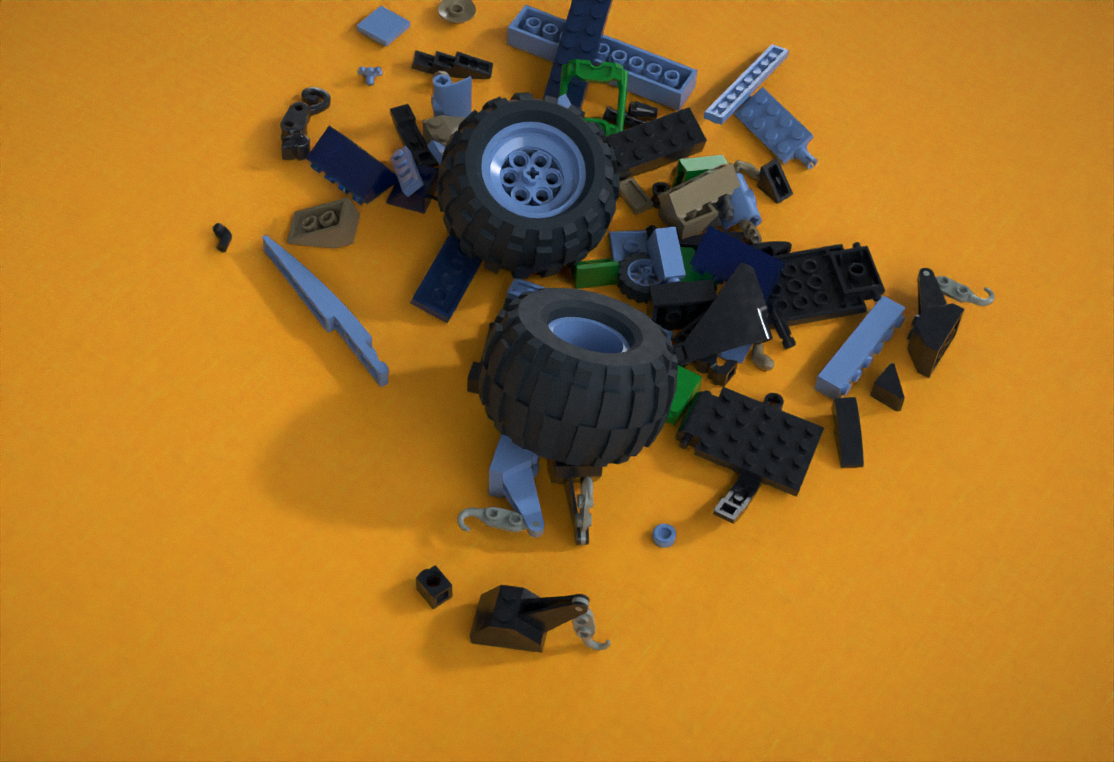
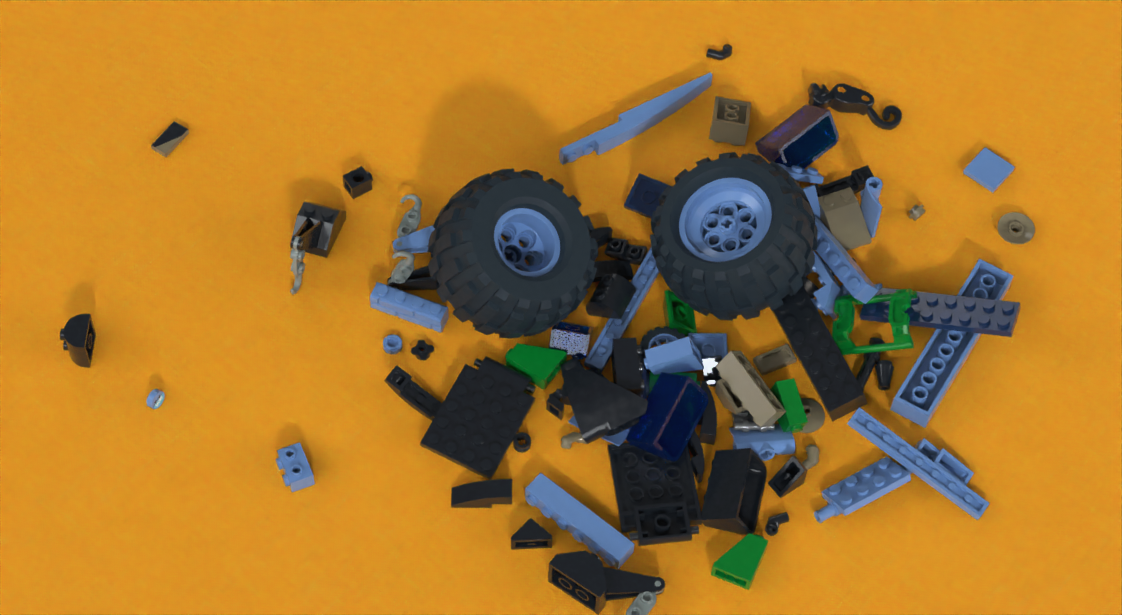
camera: 95 degrees right, 5 degrees up
(370, 74) = (921, 157): medium blue plant -> none
(456, 66) = (939, 222): black slope -> none
(616, 517) = (409, 307): none -> medium blue brick
(657, 189) = (770, 375): black bush -> none
(670, 508) = (422, 355): none -> black plate
(732, 73) = (945, 461): none -> medium blue slope
(750, 232) = (725, 443): dark tan gear -> none
(782, 328) = (602, 455): black axle -> none
(802, 221) = (734, 491): none -> black windscreen
(830, 199) = (774, 521): none -> black arm
(852, 616) = (295, 467): none -> medium blue brick
(873, 217) = (741, 561): none -> green slope

